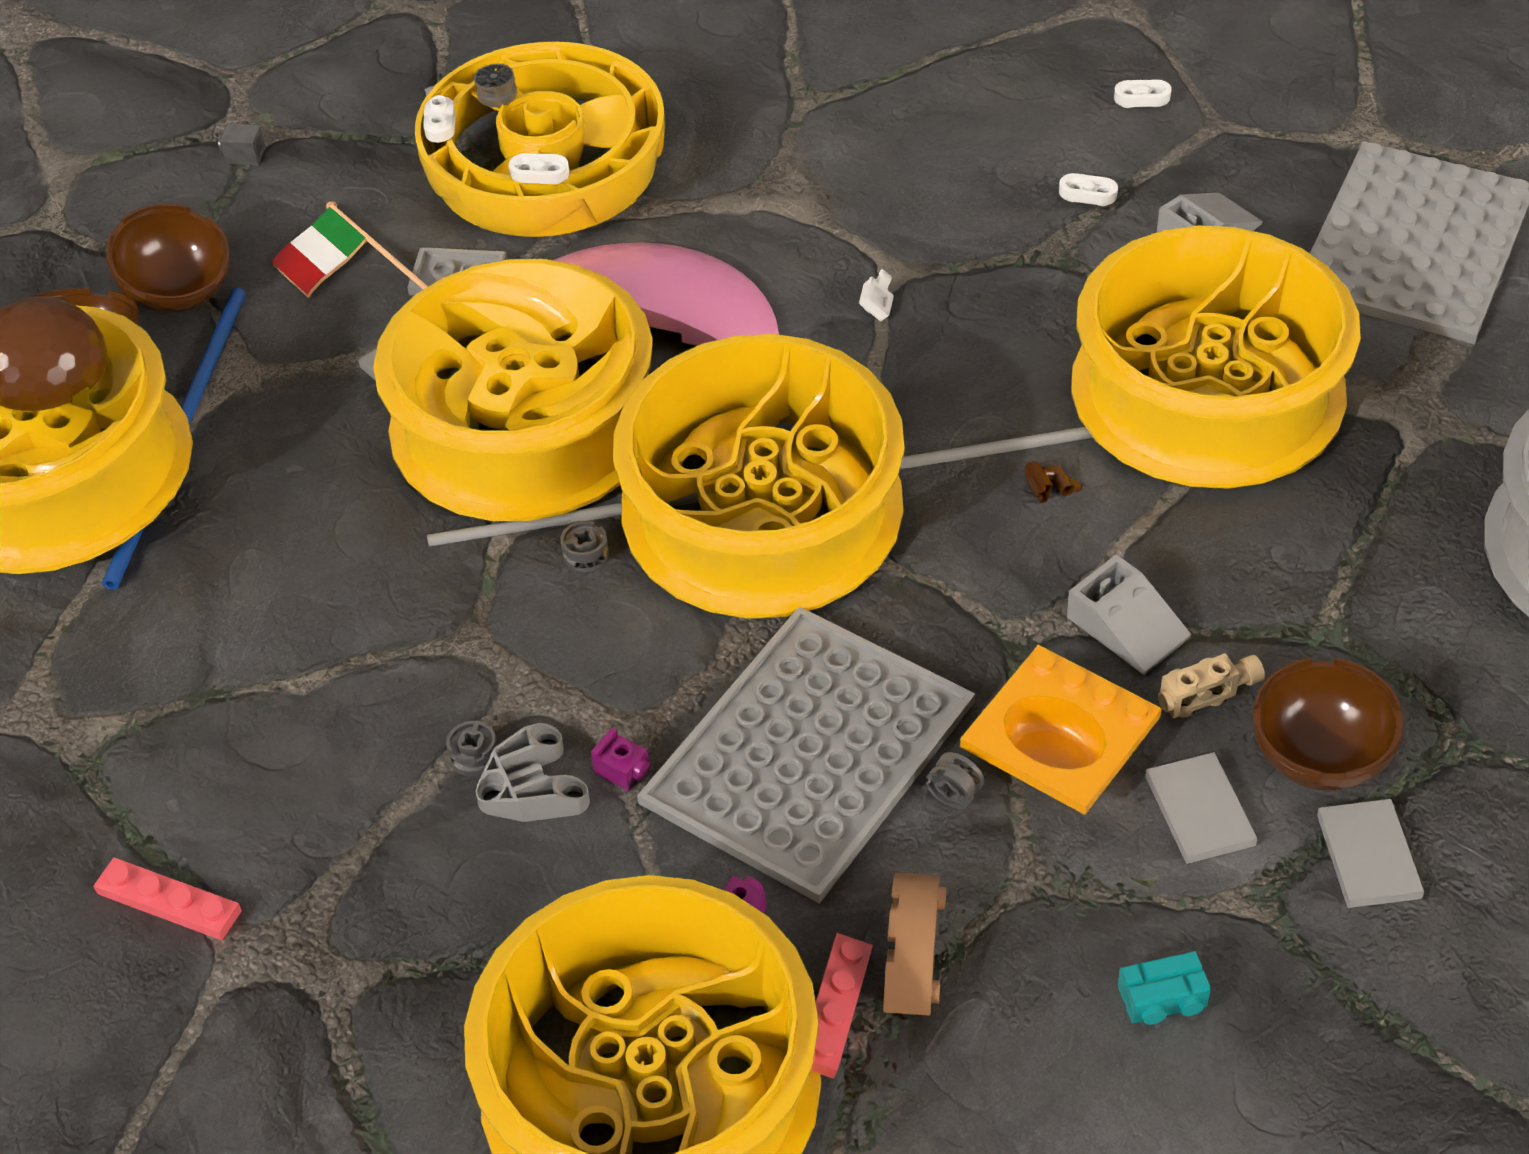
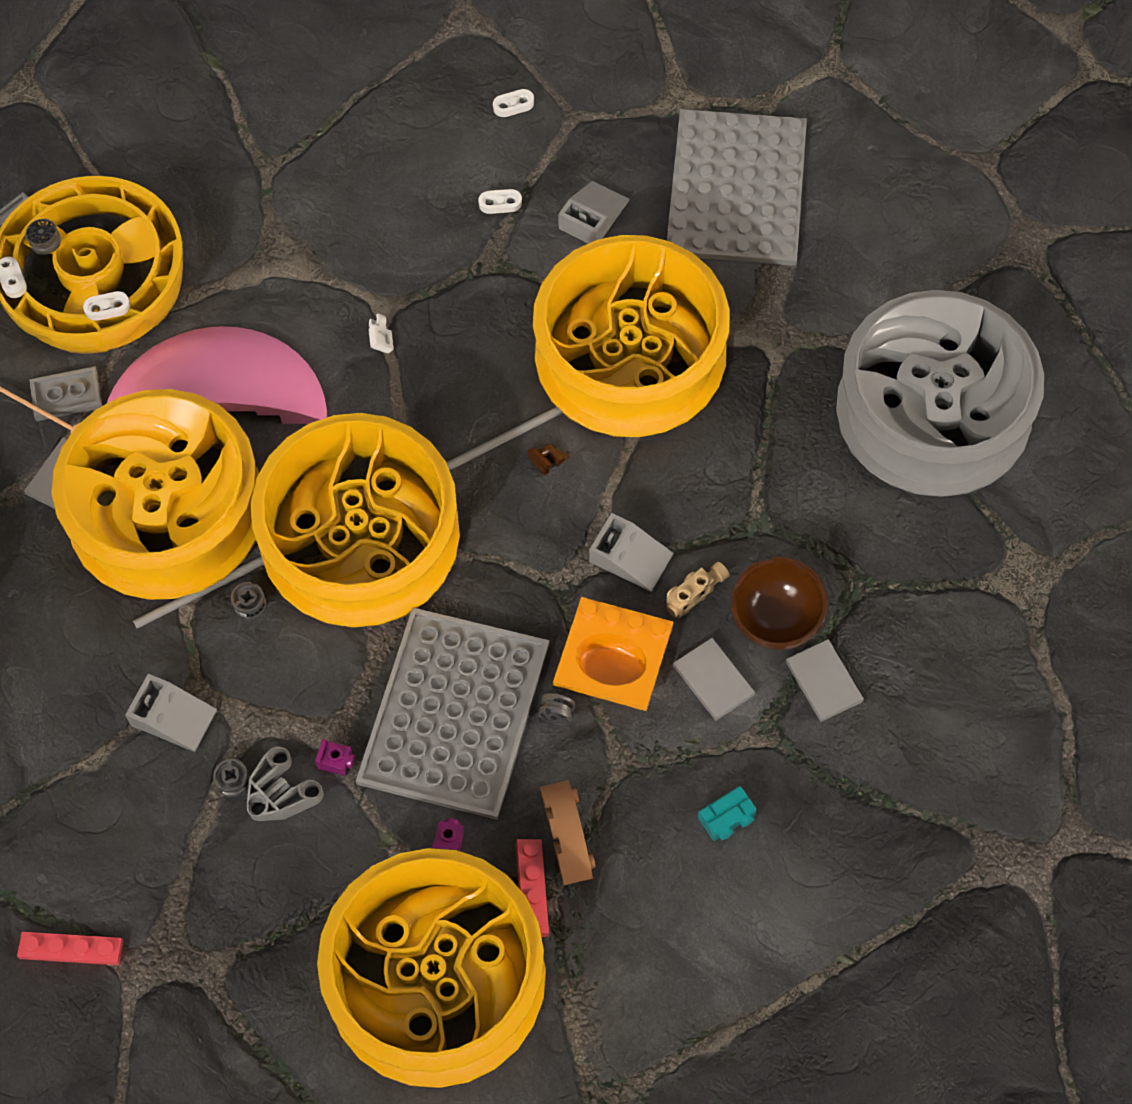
camera: 20 degrees left, 15 degrees up
(424, 646) = (170, 713): none -> light grey slope

